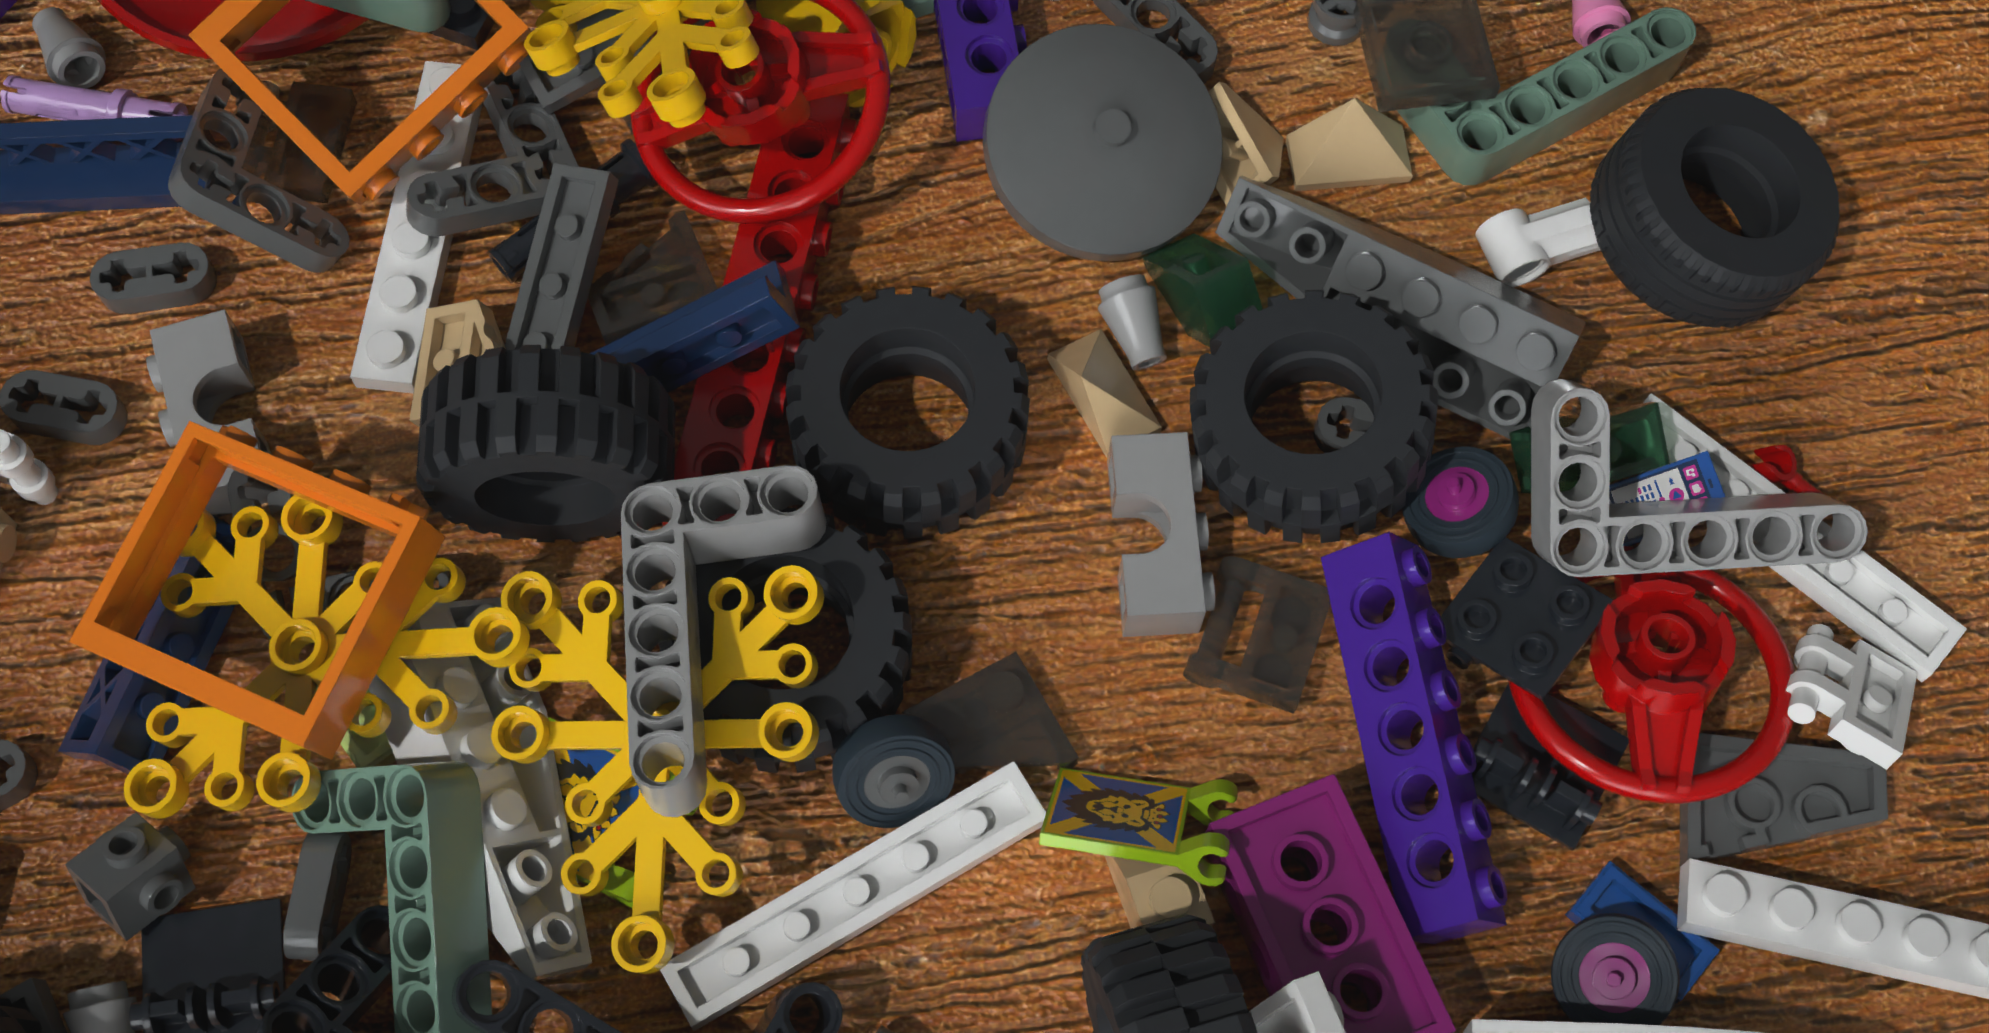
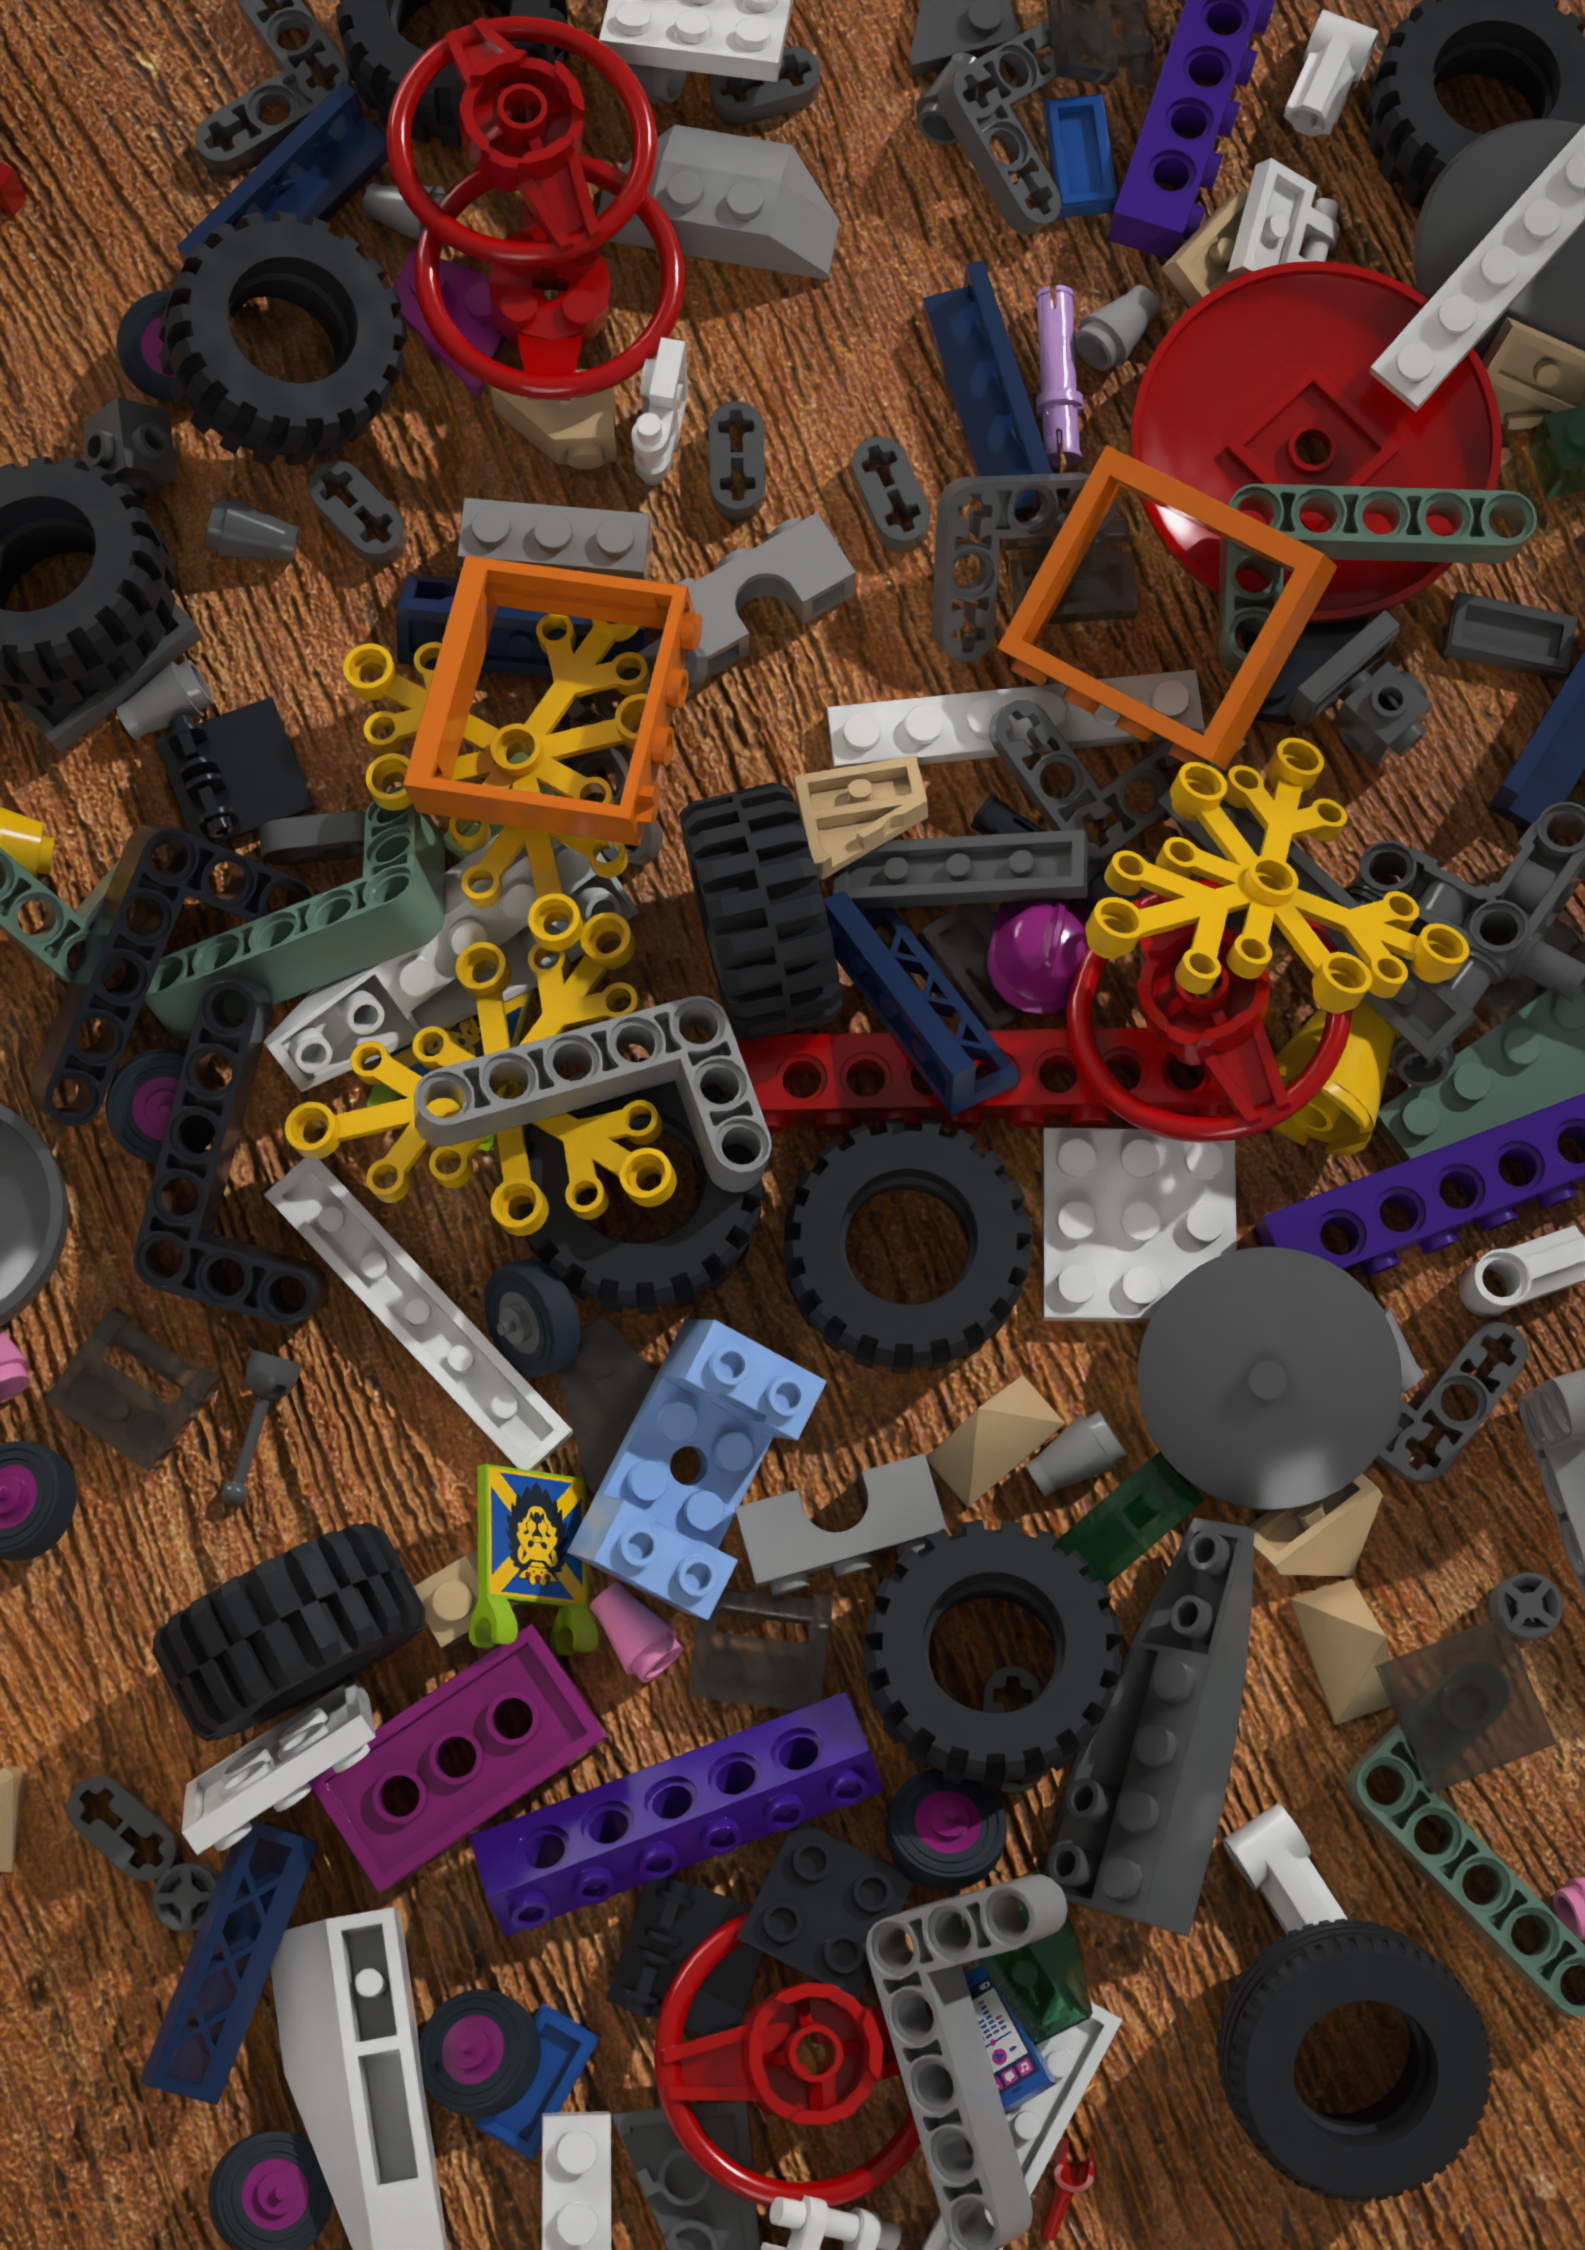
camera: 80 degrees right, 10 degrees up
(75, 570) = (557, 537): none -> light grey arch
(132, 874) = (300, 677): dark grey brick -> none
(656, 240) = (1036, 953): none -> magenta piece
(928, 221) = (1129, 1219): none -> white plate
(1014, 617) = (727, 1405): none -> light blue plate
(1225, 745) = (637, 1634): none -> bright pink cone

